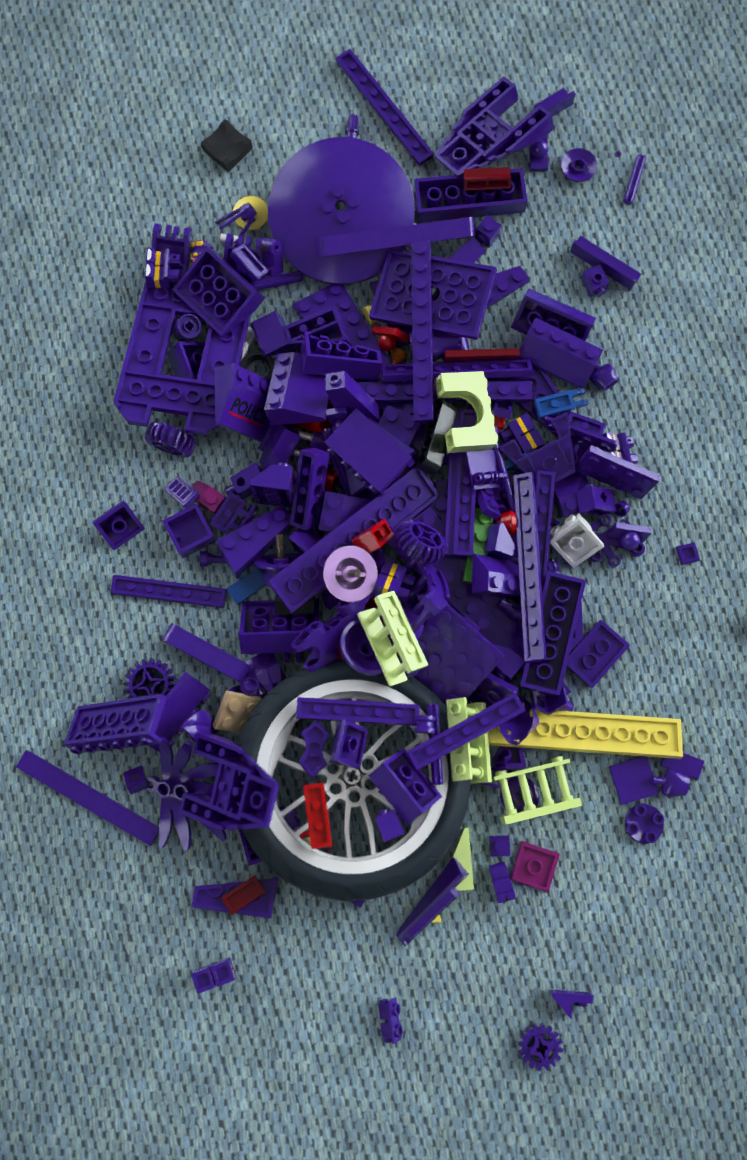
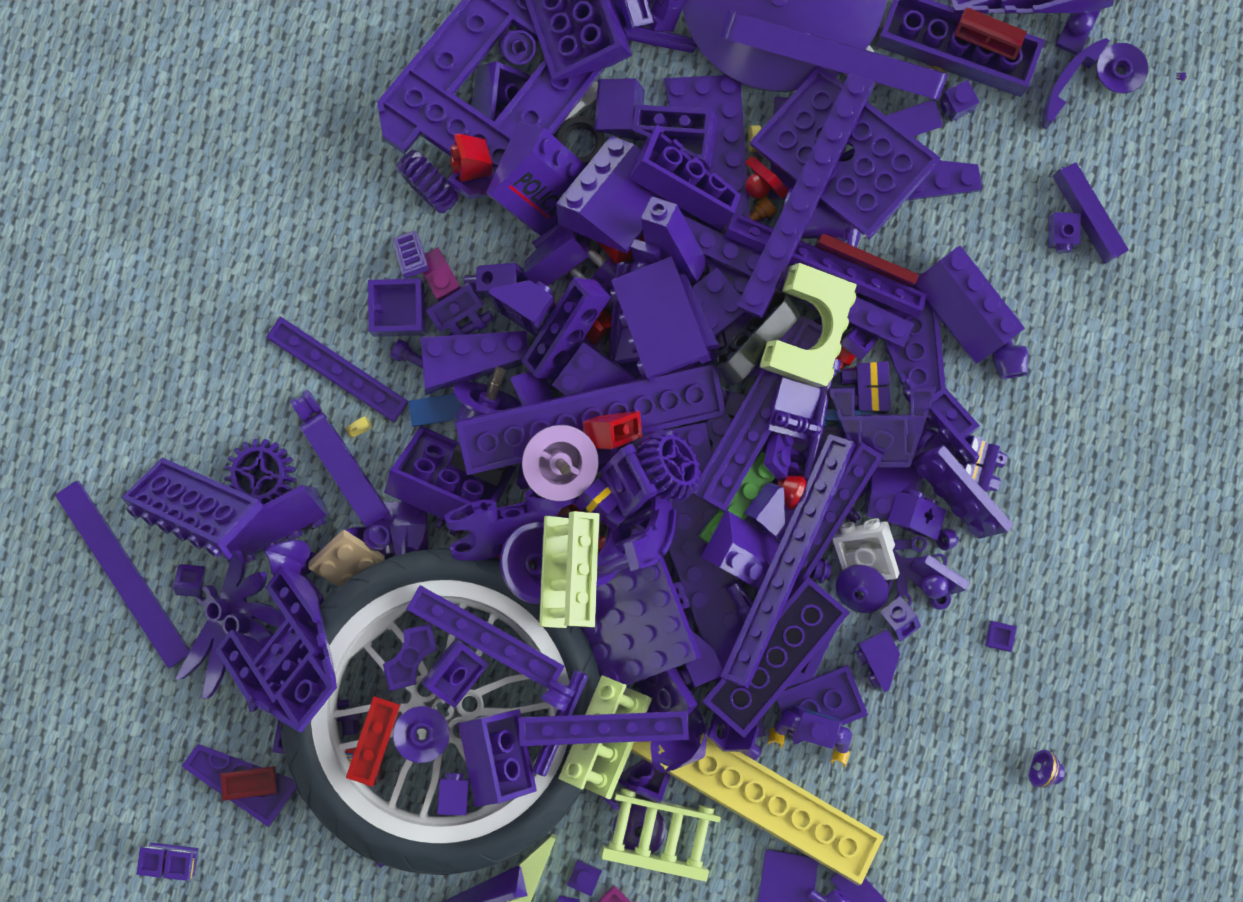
camera: 30 degrees right, 5 degrees up
(118, 525) = (315, 258): dark purple slope -> none
(159, 624) = (305, 405): none -> dark purple wheel
(193, 406) = (470, 157): none -> red slope
(201, 622) = (363, 425): none -> light yellow tile
(351, 785) = (418, 749): none -> dark purple dish
(397, 567) = (622, 483): none -> dark purple plate
(549, 205) = (1054, 103): none -> dark purple slope
(552, 312) = (987, 249): dark purple slope -> none
(559, 403) = (935, 368): blue hinge -> none
(584, 558) = (867, 581): none -> dark purple dish
(601, 668) = (816, 729): none -> dark purple torso
(619, 604) = (881, 658): none -> dark purple slope
(620, 572) = (901, 618): none -> dark purple bracket
(634, 179) = (1185, 120): dark purple axle -> none

